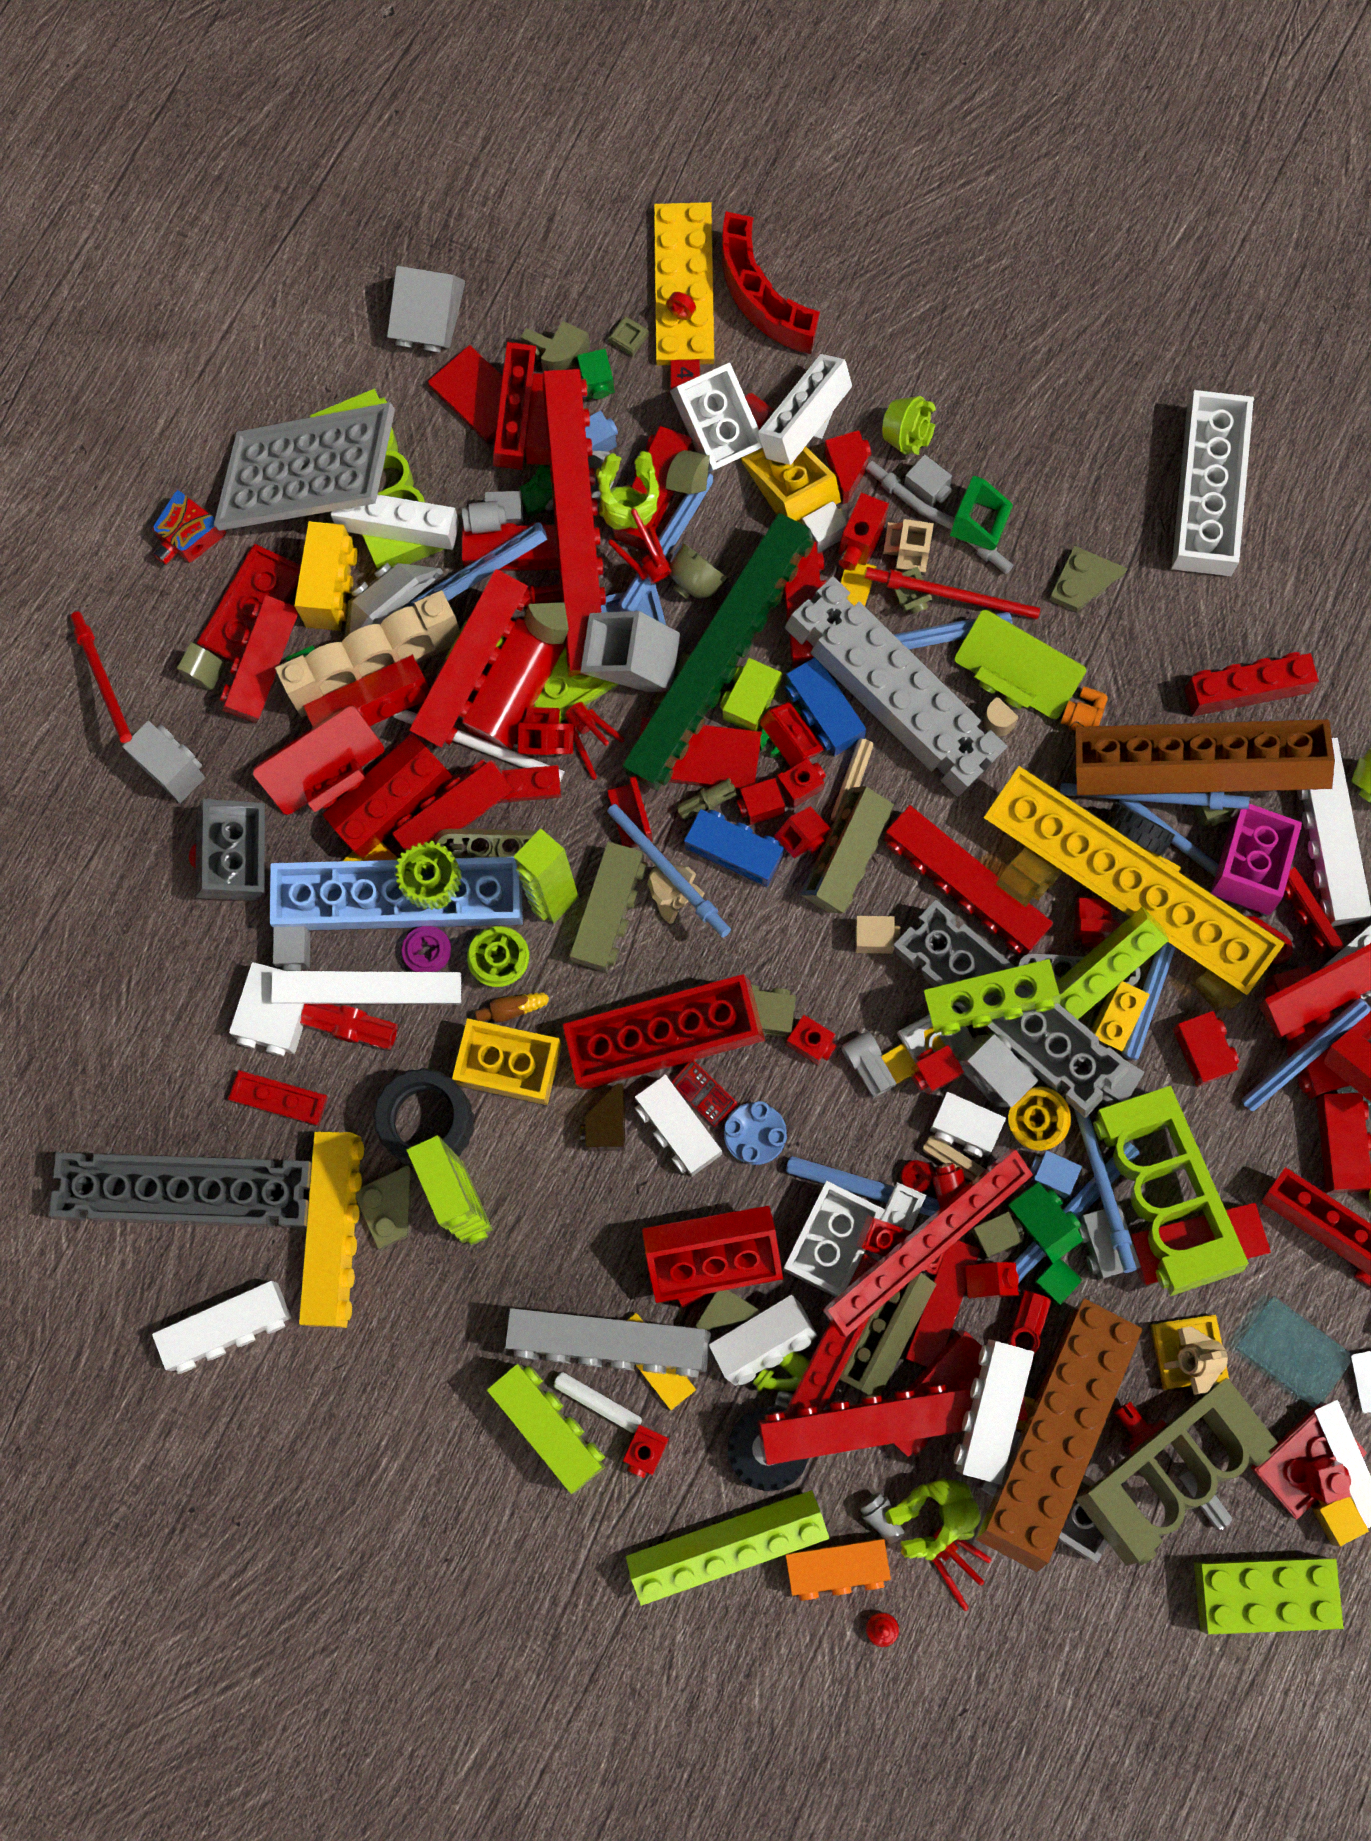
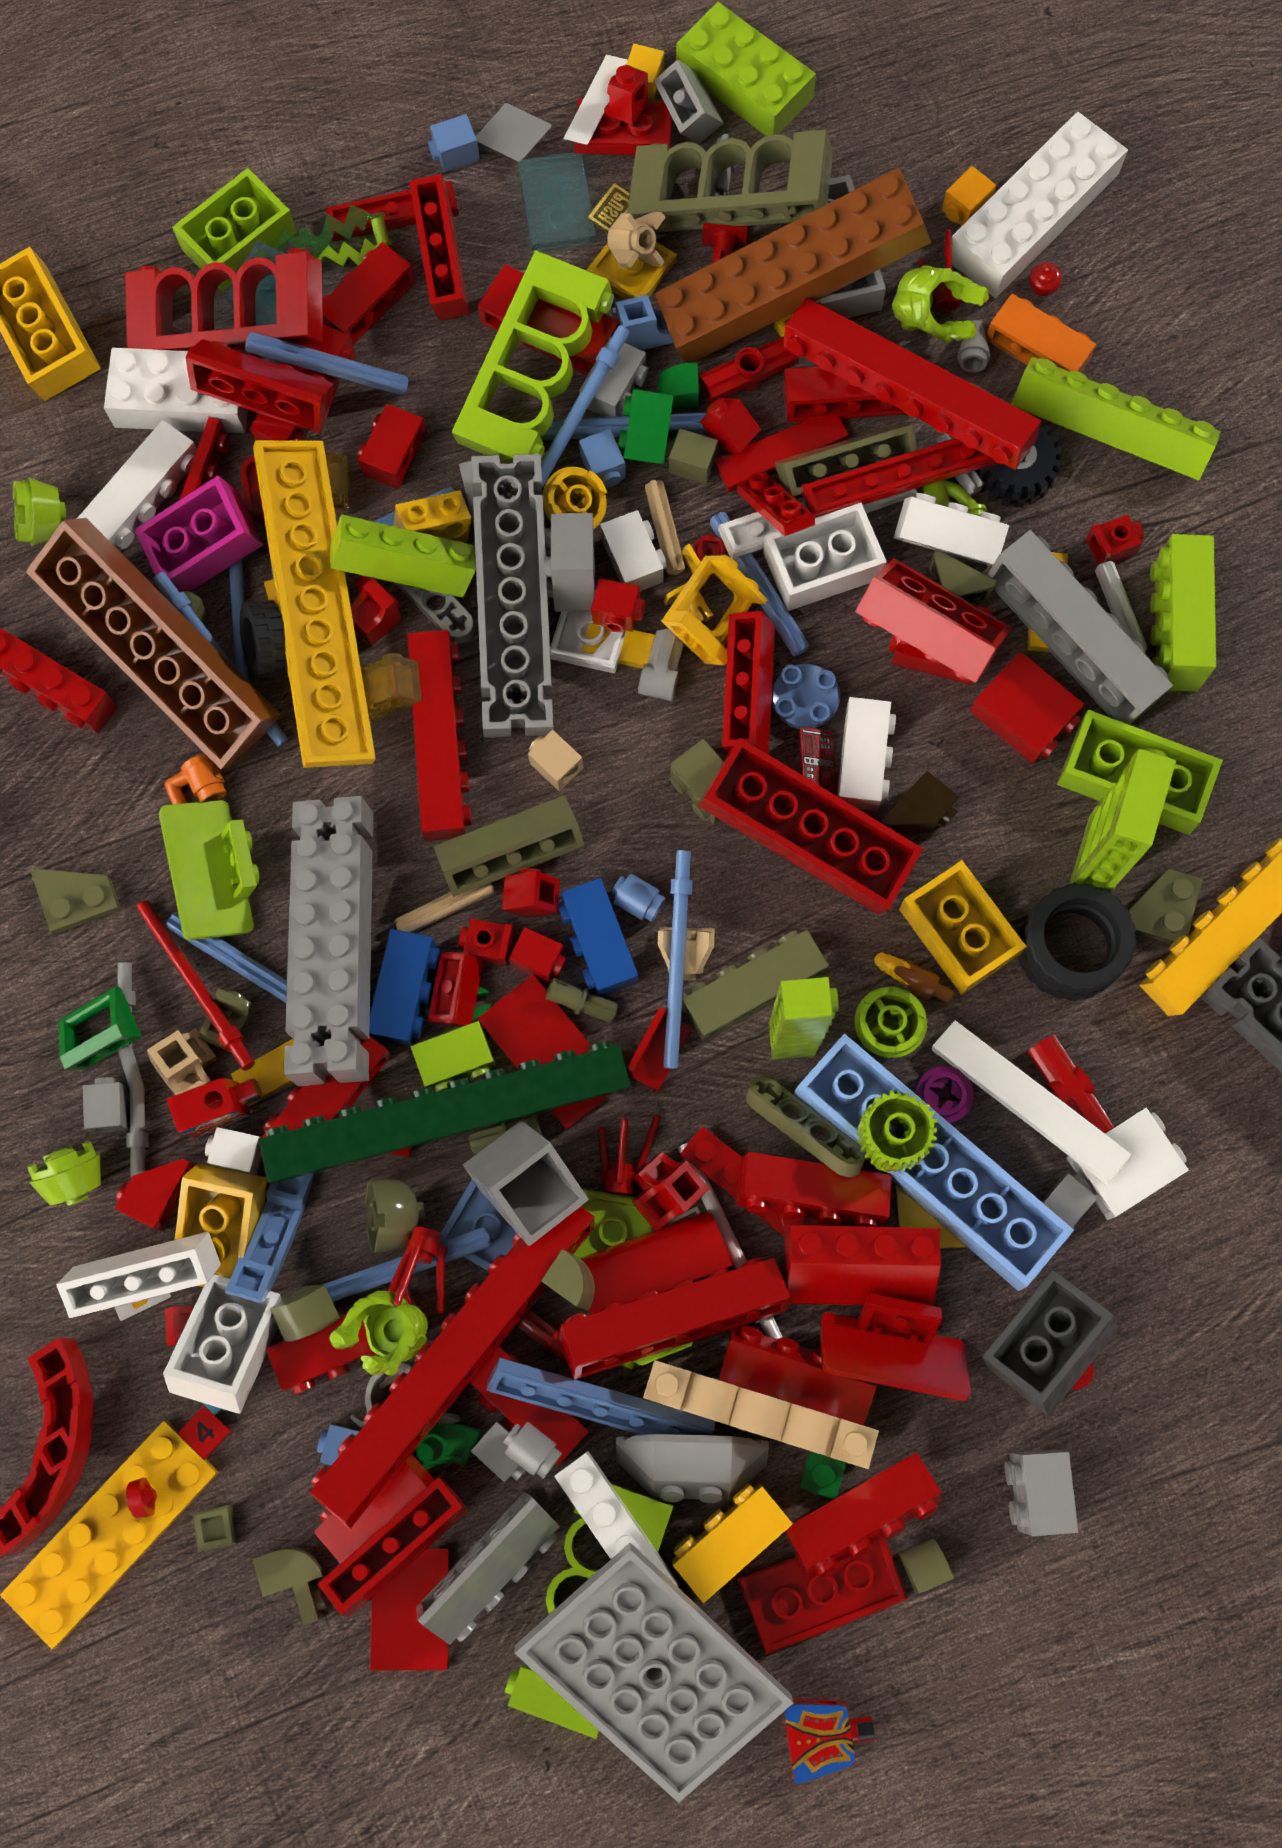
camera: 140 degrees left, 0 degrees up
(85, 638) = (1014, 1709): red bar -> none
(278, 1098) = (1185, 1084): red tile -> none
(424, 308) = (376, 1754): light grey slope -> none
(452, 439) = (486, 1569): none -> light grey slope
(480, 1280) = (1106, 747): none -> lime brick
(596, 370) = (285, 1511): green brick -> none
(596, 1261) = (1028, 708): none -> red brick
(735, 895) = (637, 897): none -> medium blue brick
(747, 488) = (271, 1239): none -> medium blue slope
(797, 1099) = (748, 680): none -> red brick
(812, 1040) = (690, 722): red brick -> none
(863, 1104) = (690, 630): none -> yellow window
(901, 1132) = (698, 605): none -> yellow bracket
(927, 1242) = (757, 478): plate -> none
(943, 1686) = (1036, 204): none -> white brick
(948, 1182) = (694, 515): red brick -> none
(994, 1411) = (829, 313): white brick -> none
(999, 718) = (271, 842): tan brick -> none
(999, 1643) = (967, 196): none -> light orange brick
(1004, 983) = (500, 599): lime brick -> none
(1135, 1300) = (644, 323): none -> medium blue brick
(1249, 1381) = (610, 206): none -> clear yellow sticker
(1280, 1521) = (688, 102): none -> light grey brick

